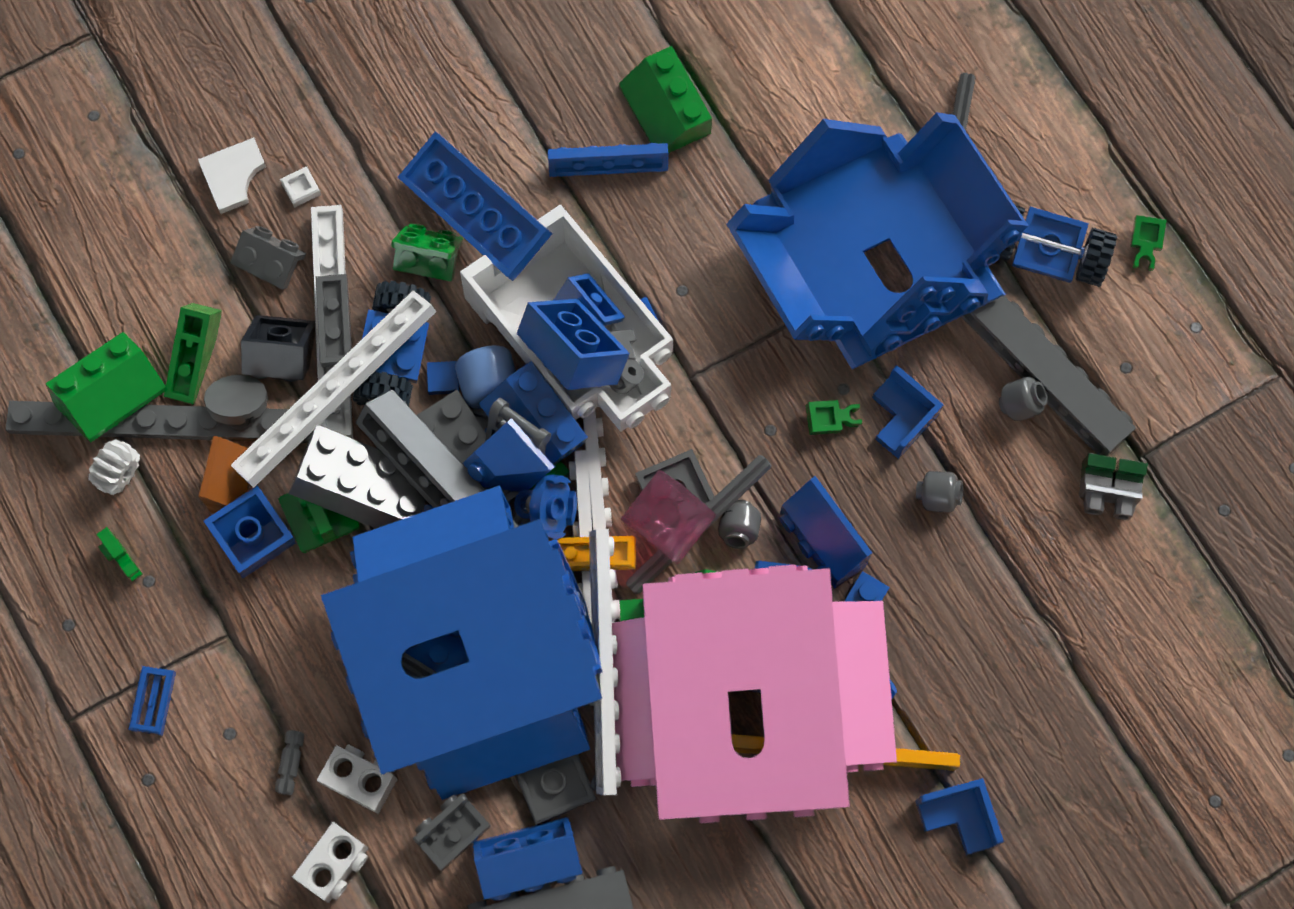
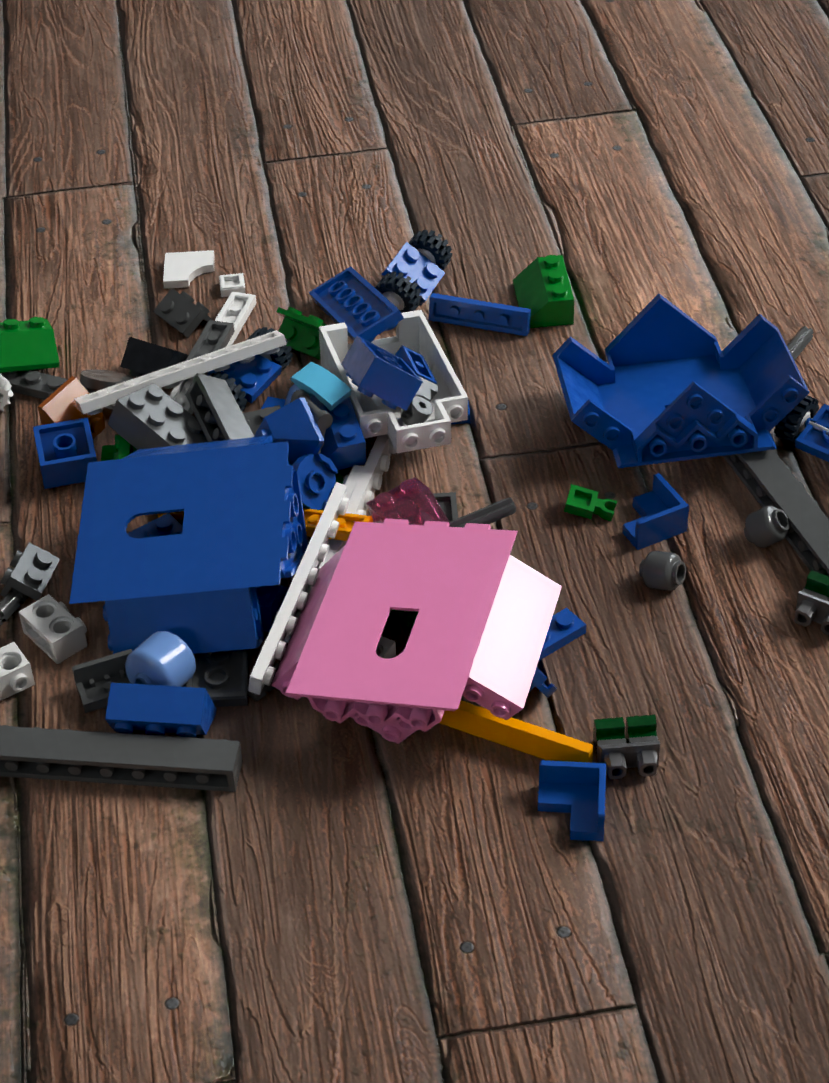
camera: 25 degrees right, 30 degrees down
(191, 351) = (94, 345): green slope -> none
(293, 712) = (30, 573): none -> dark grey bracket
(504, 808) = (161, 661): none -> medium blue head
(512, 122) = (415, 271): none -> plate
(516, 386) = (321, 384): none -> medium azure slope
(824, 532) = (543, 551): blue slope -> none
(983, 730) = (627, 747): none -> flat silver hips

